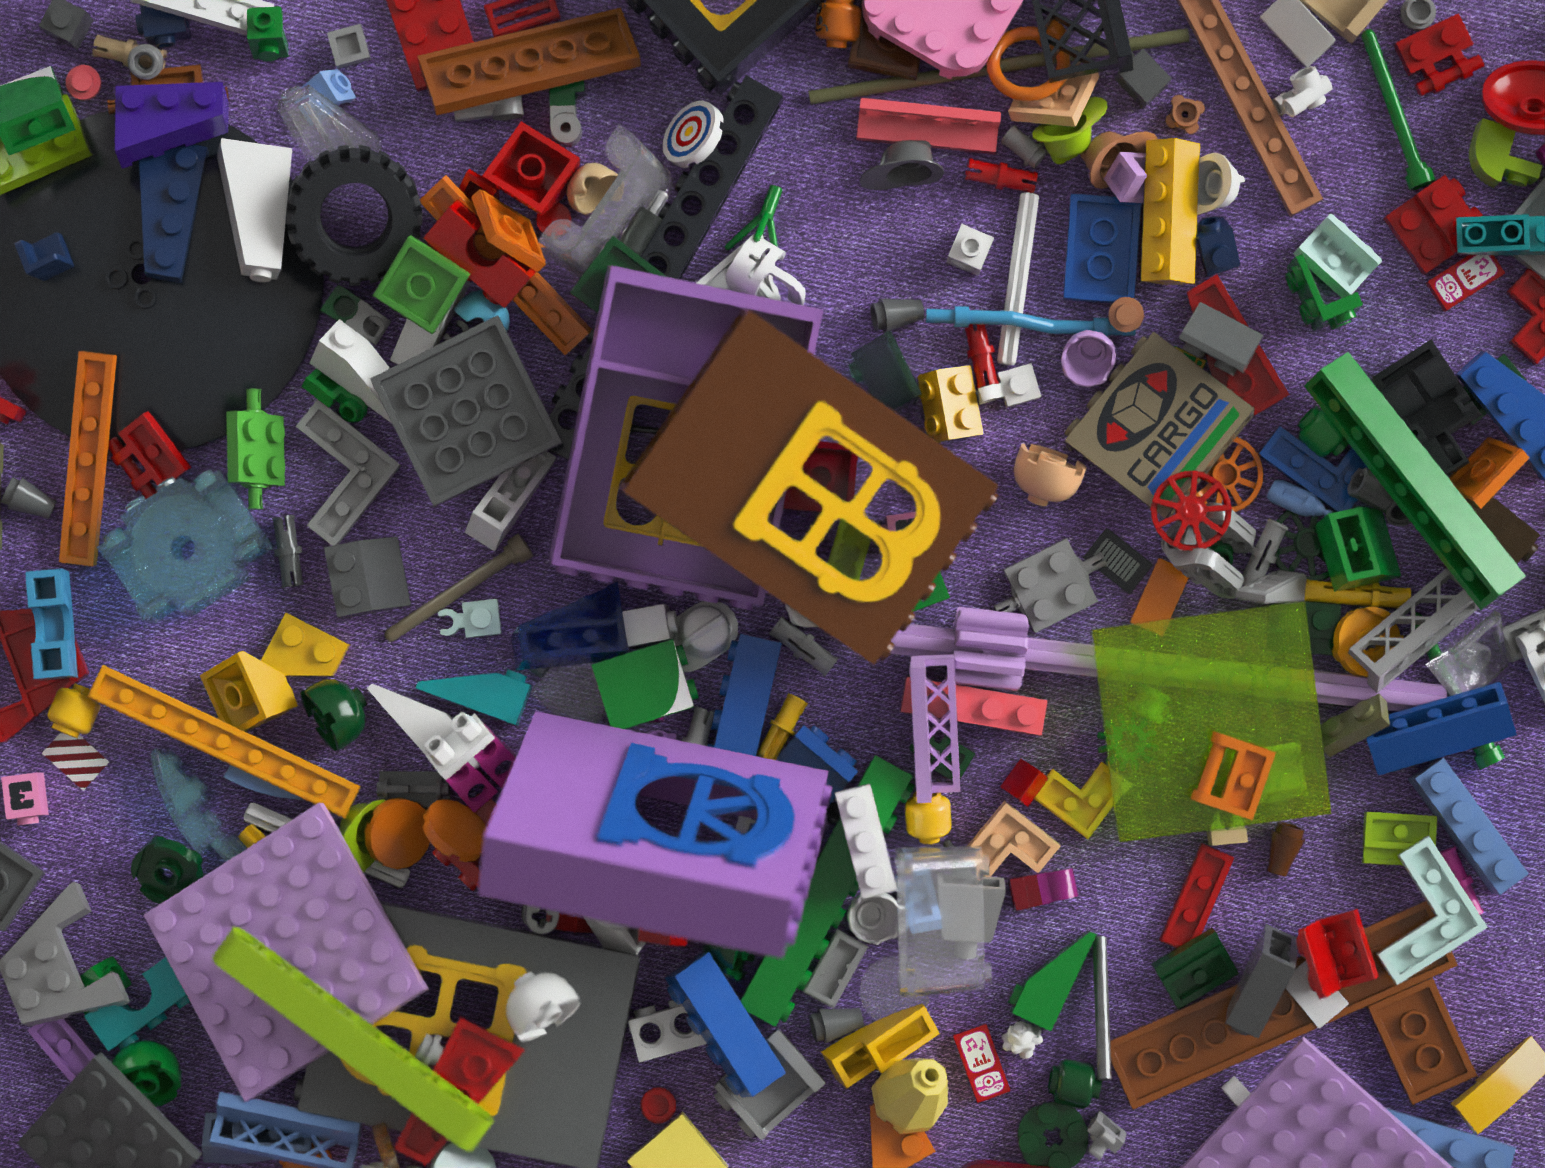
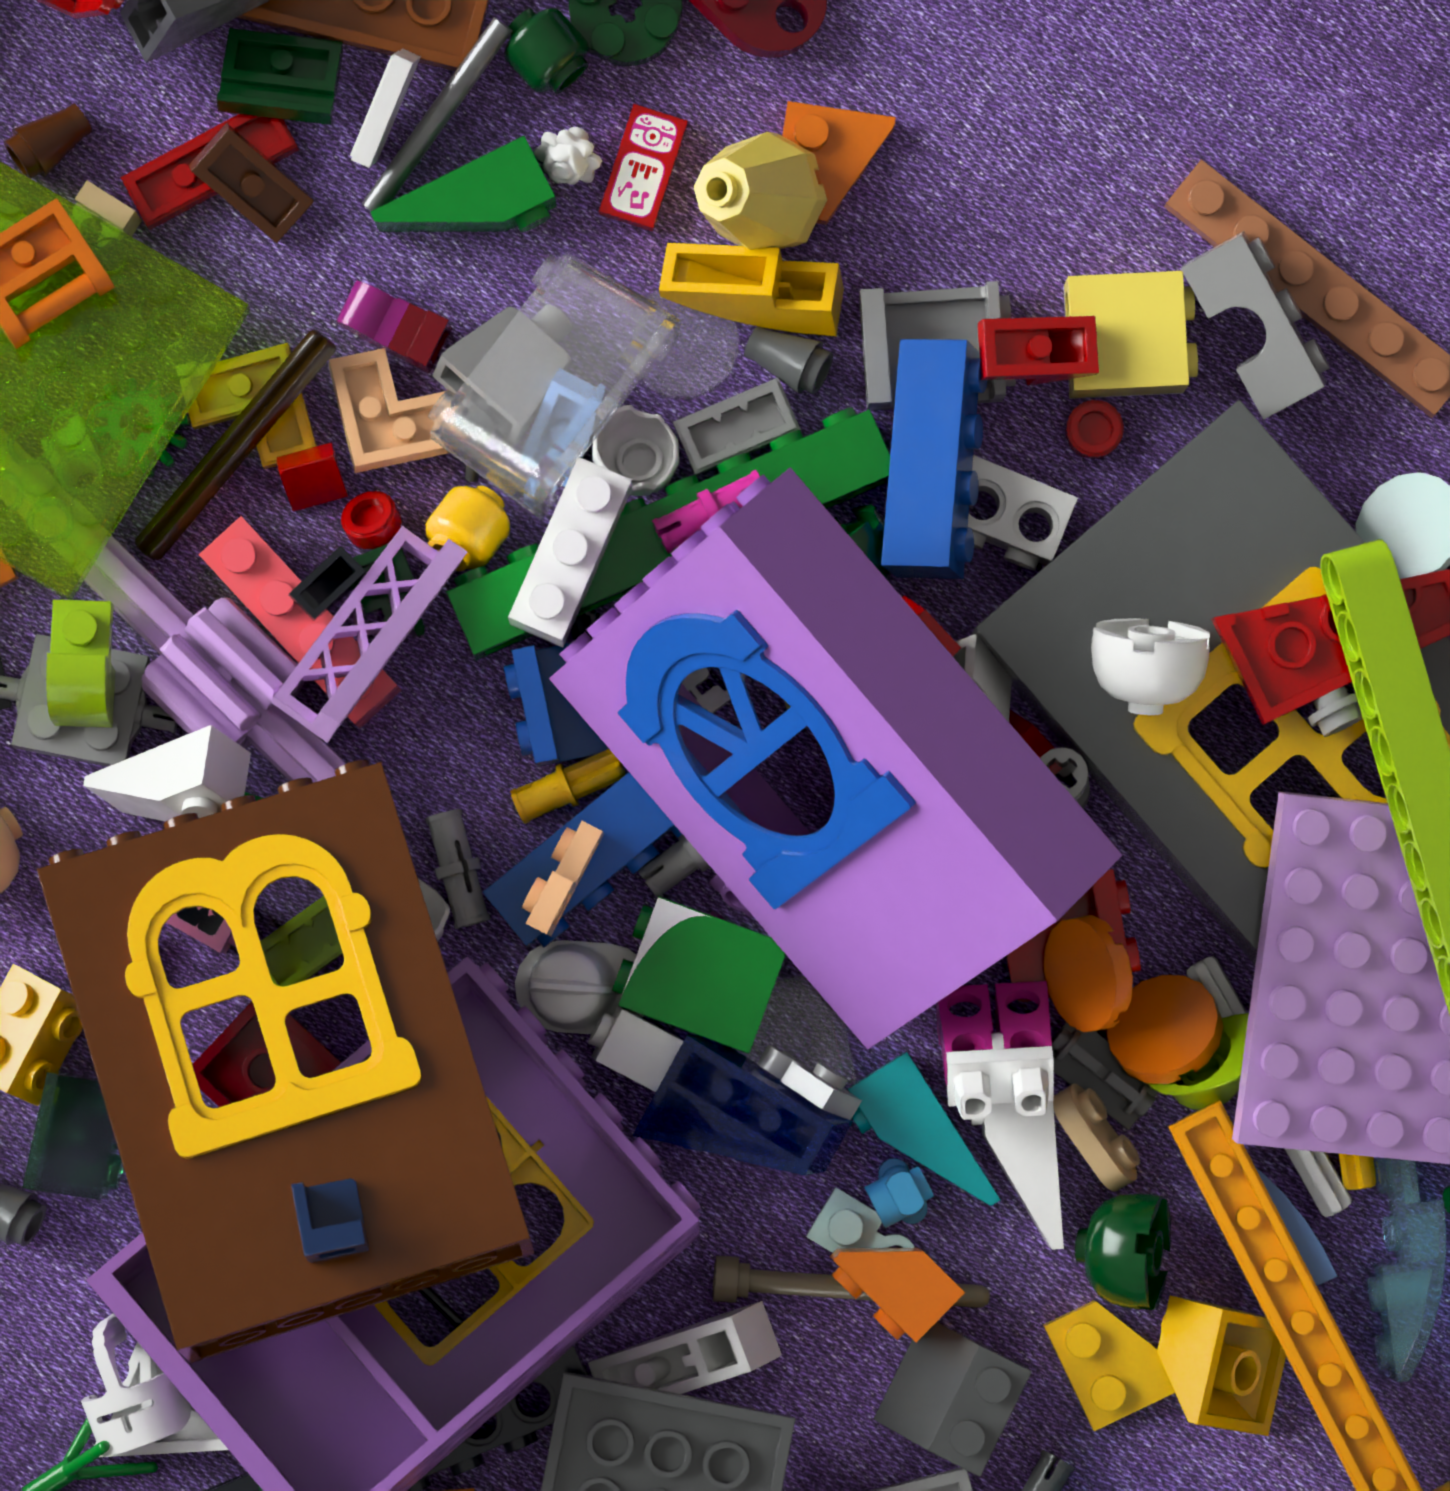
camera: 145 degrees left, 0 degrees up
(401, 757) = (1085, 1122): none -> tan plate
(433, 611) = (902, 1283): none -> orange slope
(467, 654) = (899, 1193): none -> dark azure plate
(544, 675) = (820, 1086): none -> light grey plate
(714, 1120) = (1038, 348): none -> red slope
(724, 426) = (330, 1219): none -> dark blue panel
(745, 664) = (550, 898): none -> light nougat plate
(814, 913) = (685, 521): none -> dark pink pin
(969, 583) = (176, 777): none -> white slope
(973, 734) = (328, 583): none -> black piece
(978, 783) = (371, 520): none -> red tile
(1062, 603) = (79, 664): none -> lime brick
(1073, 769) = (235, 444): none -> dark brown axle
(1130, 992) = (384, 107): none -> white tile
(1167, 904) = (251, 183): none -> reddish brown plate

